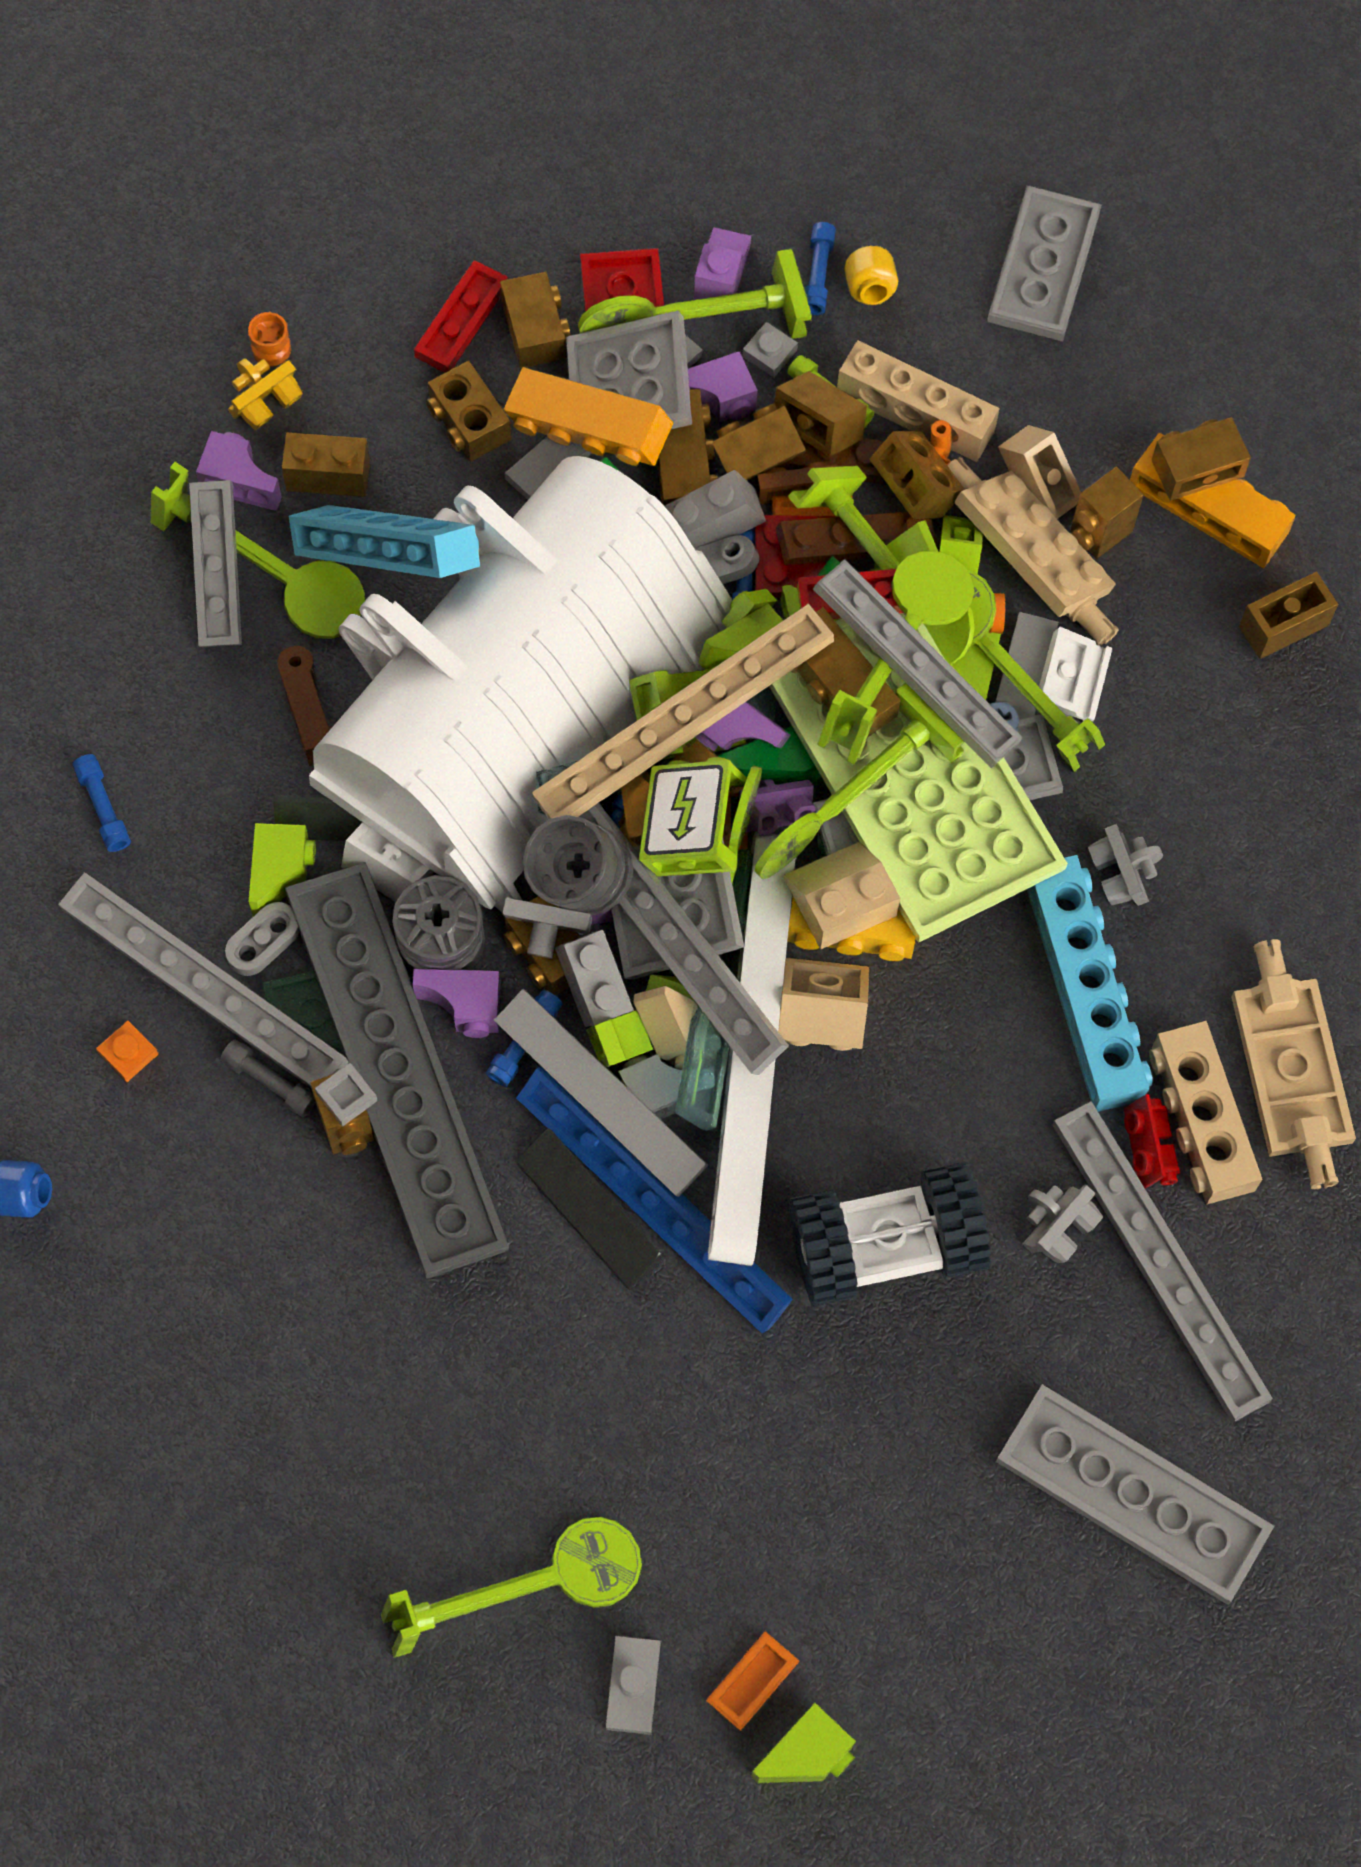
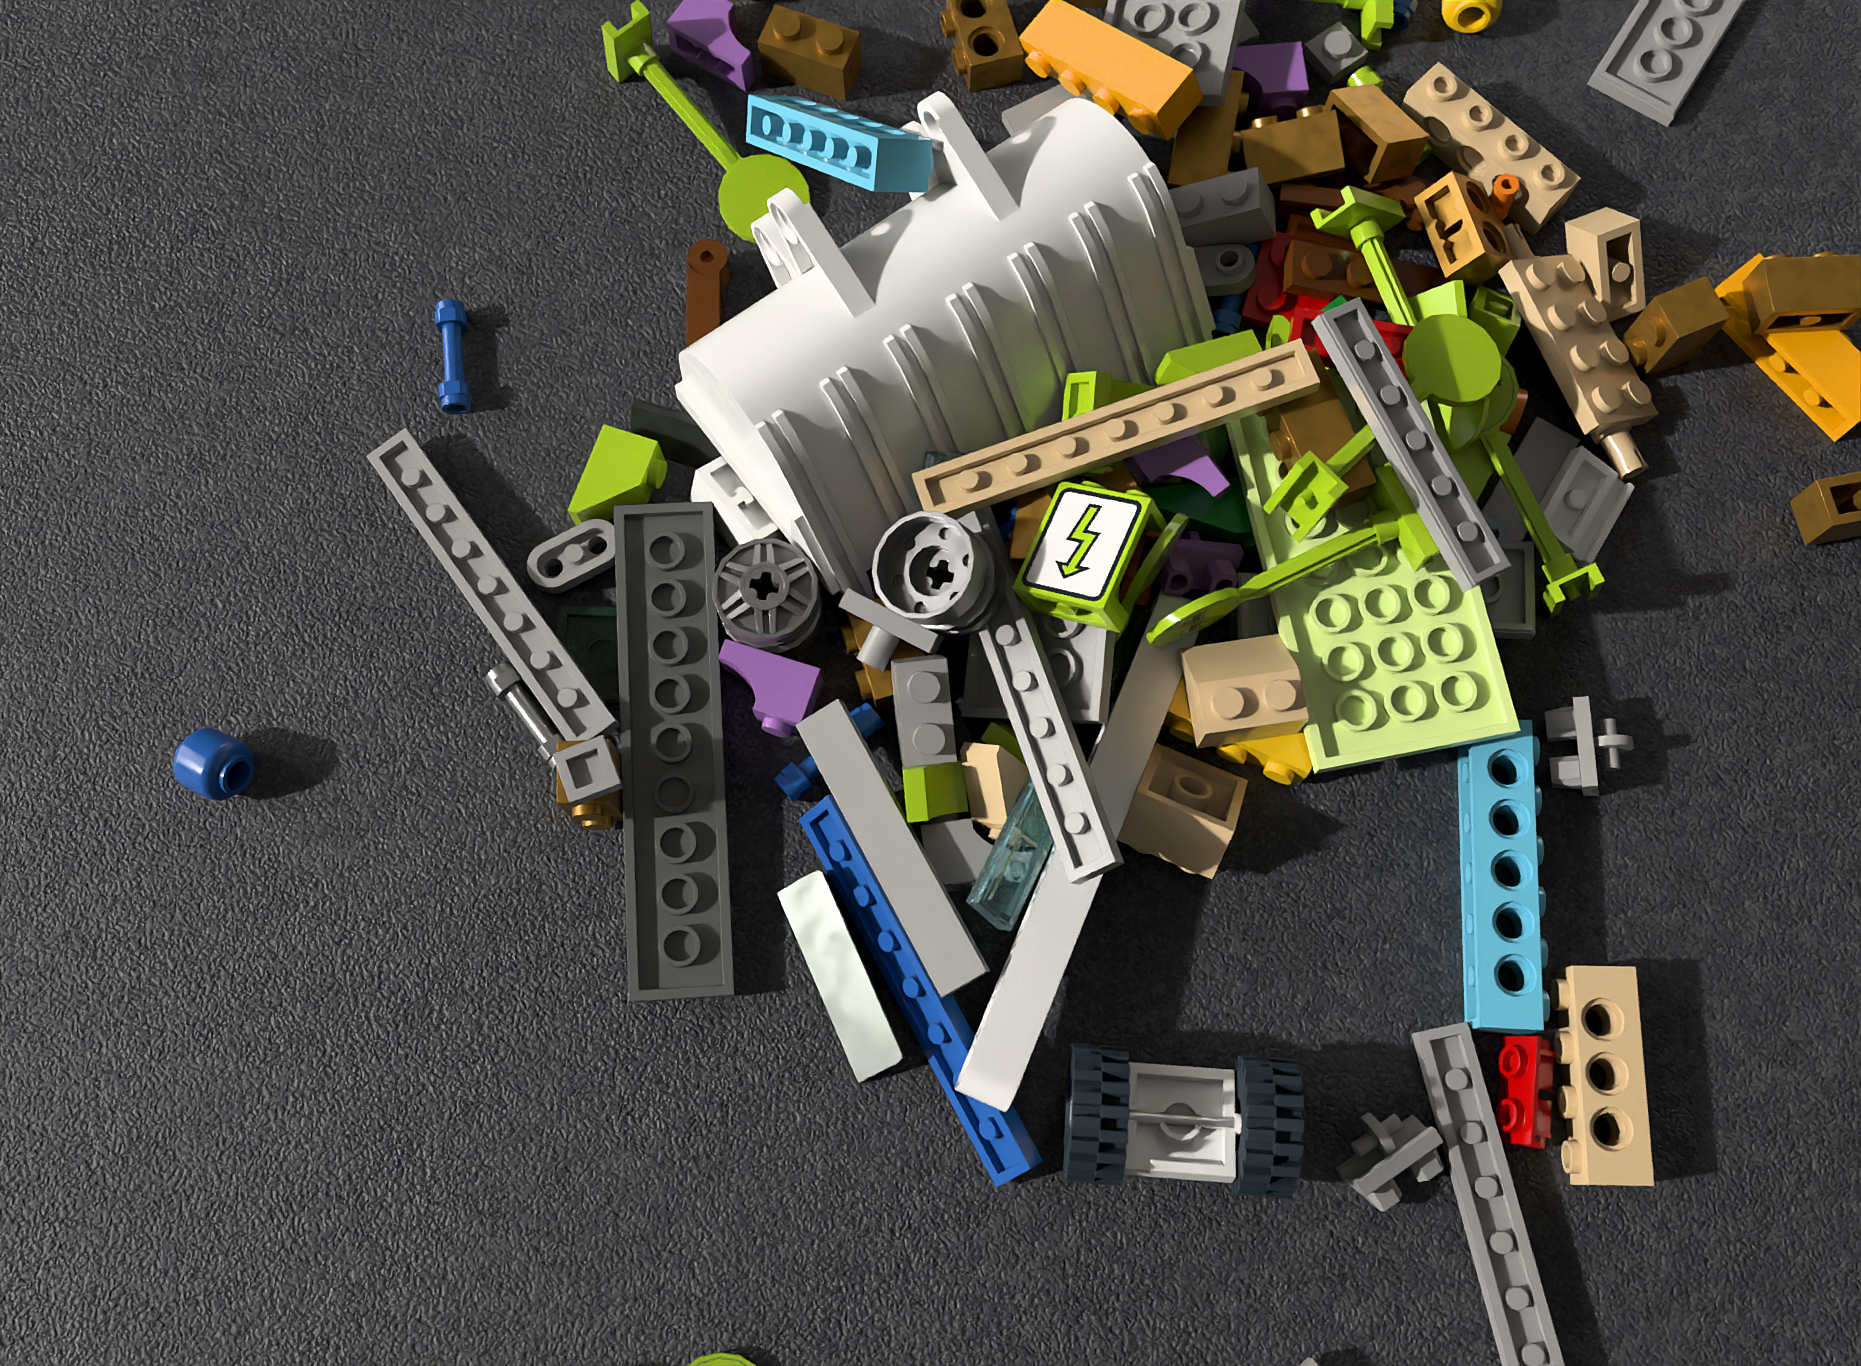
camera: 20 degrees right, 5 degrees up
(127, 1051) = (389, 640): orange plate -> none
(215, 563) = (654, 125): light grey plate -> none
(746, 603) = (1227, 323): lime plate -> none
(1293, 1066) = (1724, 1051): tan plate -> none

